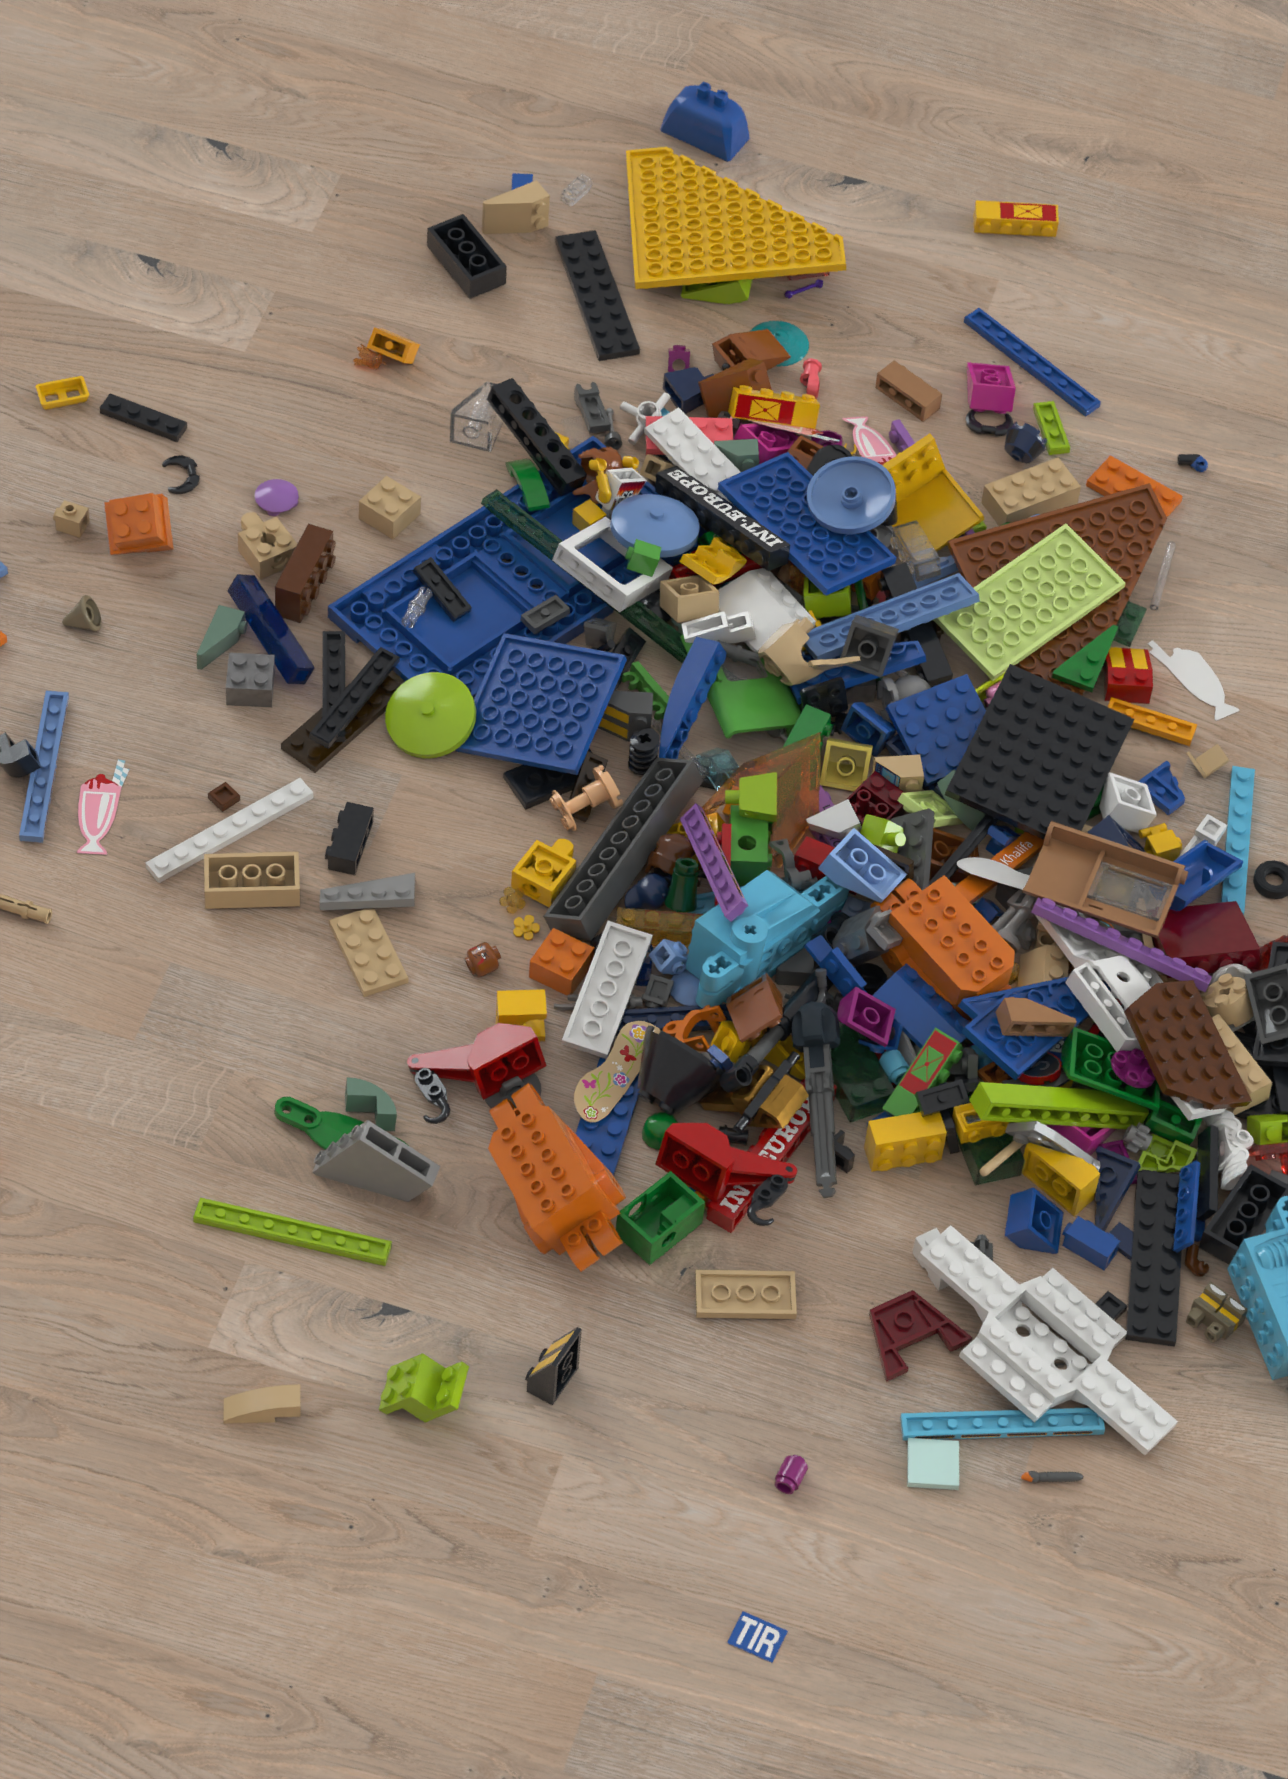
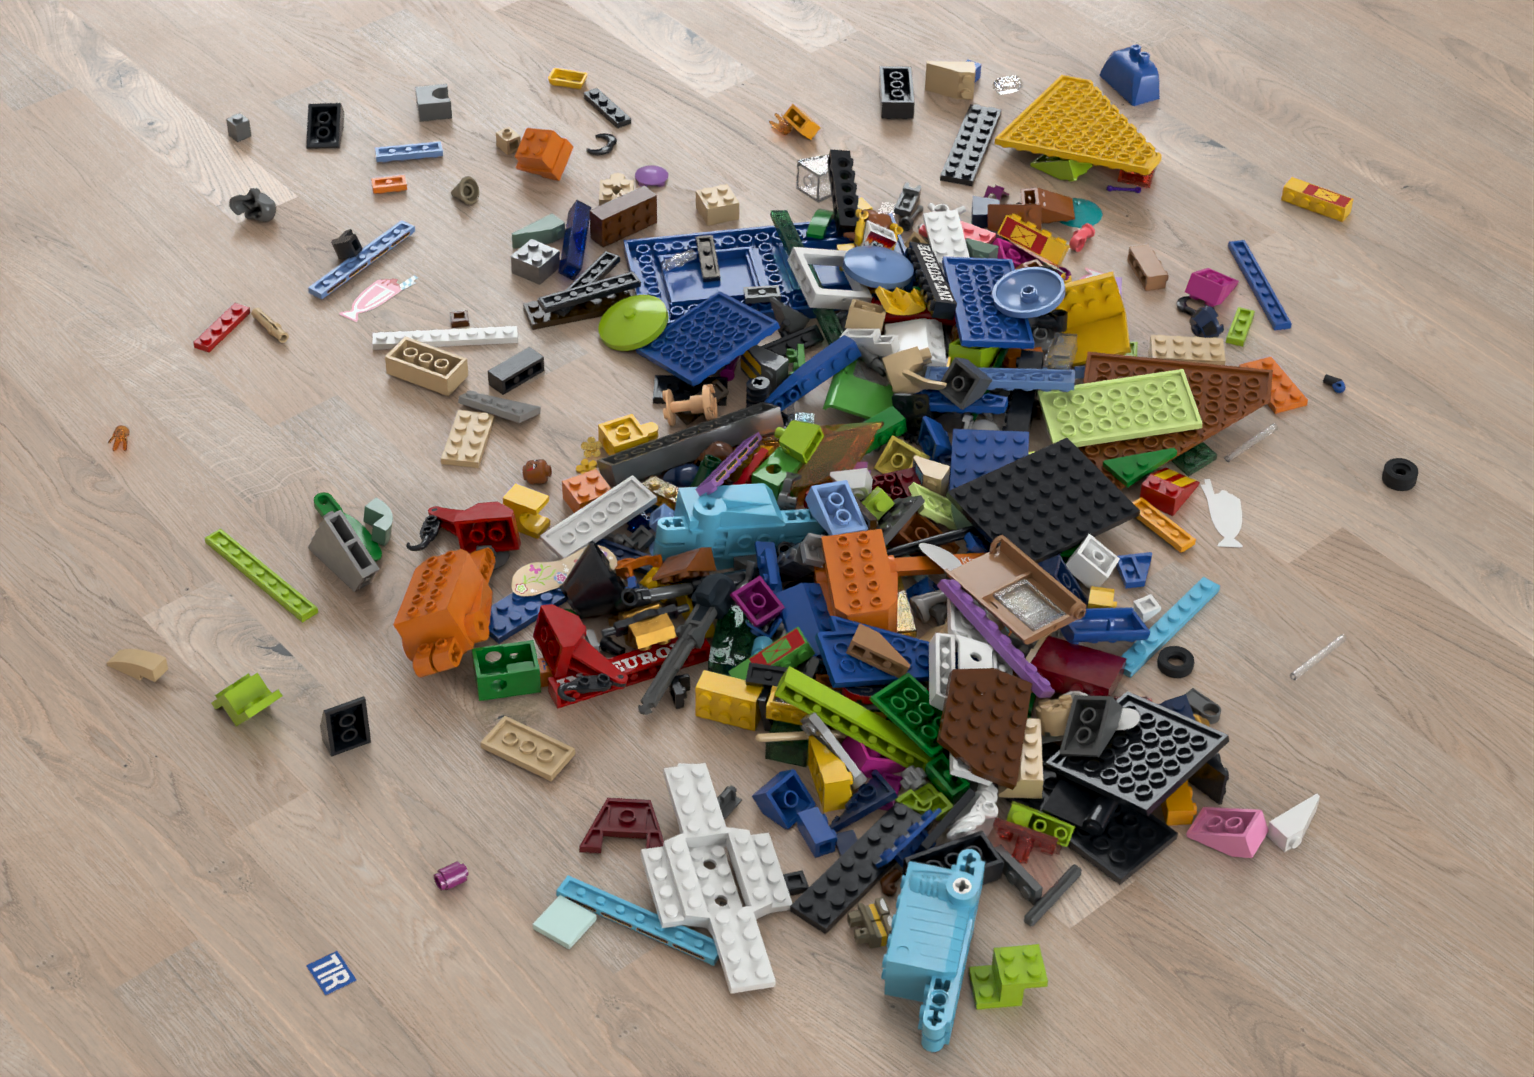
camera: 35 degrees right, 10 degrees down
(643, 557) = (849, 278): bright green brick -> none
(1033, 1476) = (646, 974): dark grey piece -> none
(1133, 1068) = (927, 717): magenta dish -> none
(1209, 761) = (1184, 567): tan bracket -> none

